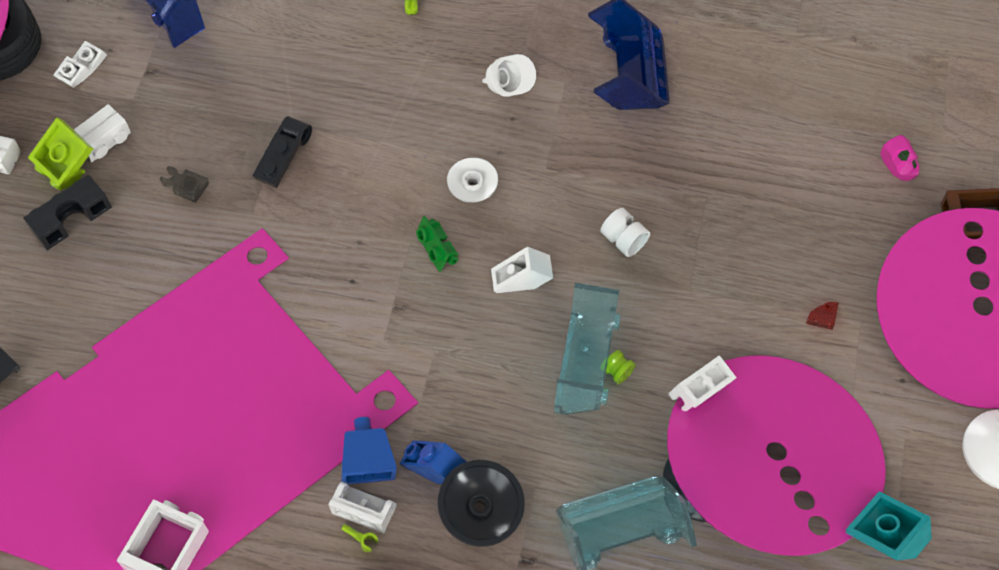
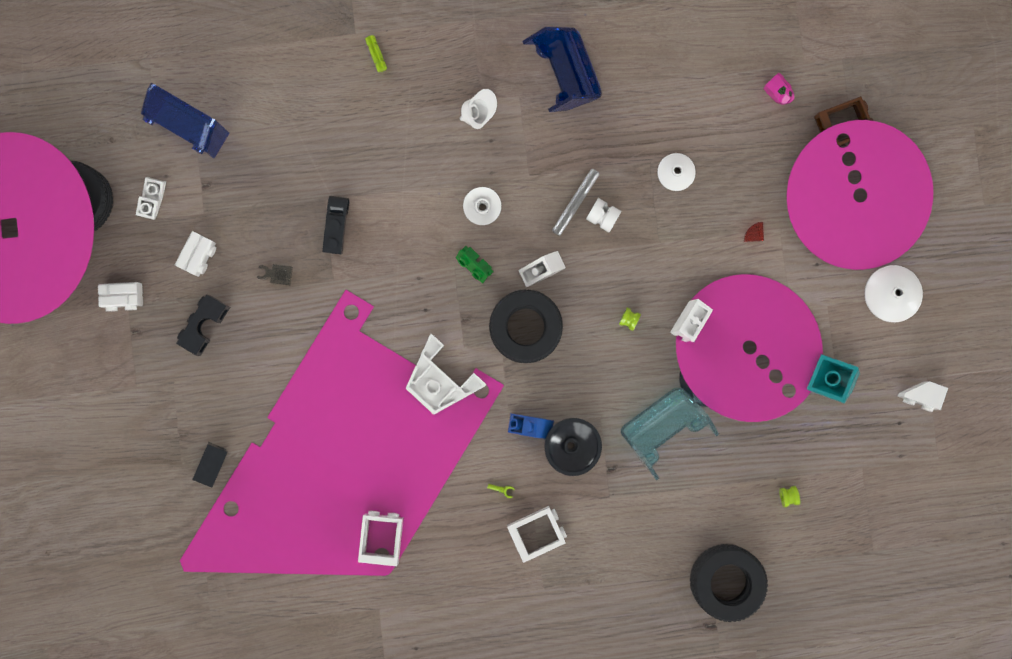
camera: 20 degrees left, 25 degrees up
(61, 155) = (178, 284): lime plate -> none
(323, 372) = (433, 386): none -> white wing
(362, 508) = (496, 470): white hinge -> none
(367, 455) = (485, 436): blue torso -> none
(467, 299) = (526, 300): none -> black tyre
(587, 350) = (607, 323): clear light blue windscreen -> none
(594, 211) = (575, 202): none -> light grey axle
(735, 224) = (669, 178): none -> white dish

